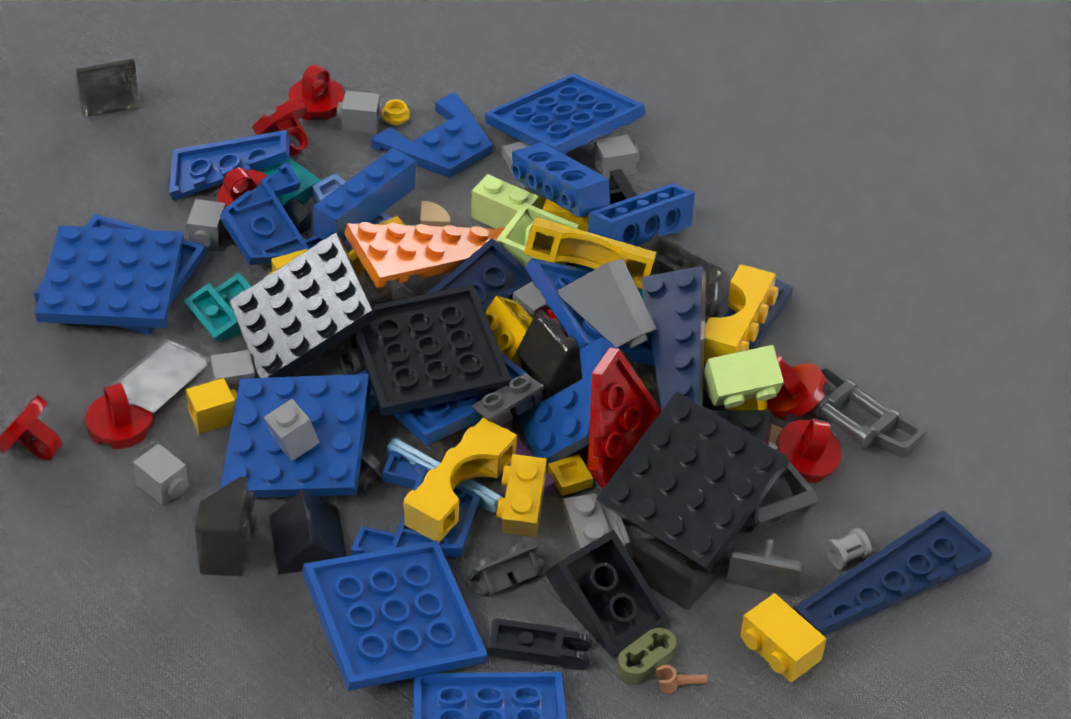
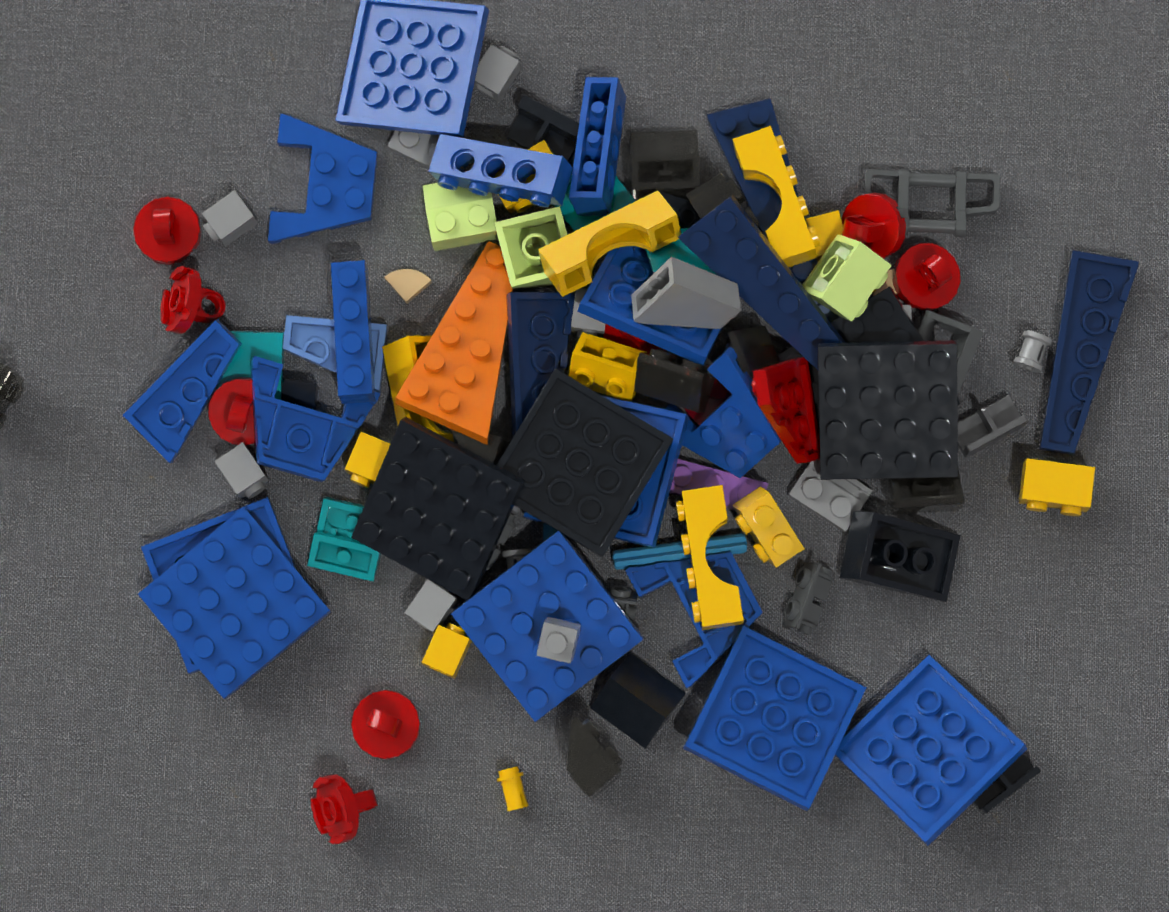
camera: 30 degrees left, 35 degrees up
(159, 511) = (513, 788): none -> yellow pin
(161, 375) = (372, 657): clear piece -> none
(161, 474) = (480, 749): light grey brick -> none
(395, 112) = (255, 187): yellow plate -> none
(520, 395) = (683, 455): dark grey hinge -> none
(539, 644) = (886, 645): black hinge -> none
(570, 475) = (774, 468): yellow plate -> none
(643, 651) = (978, 581): olive beam -> none
(670, 686) = (1010, 579): nougat hand -> none

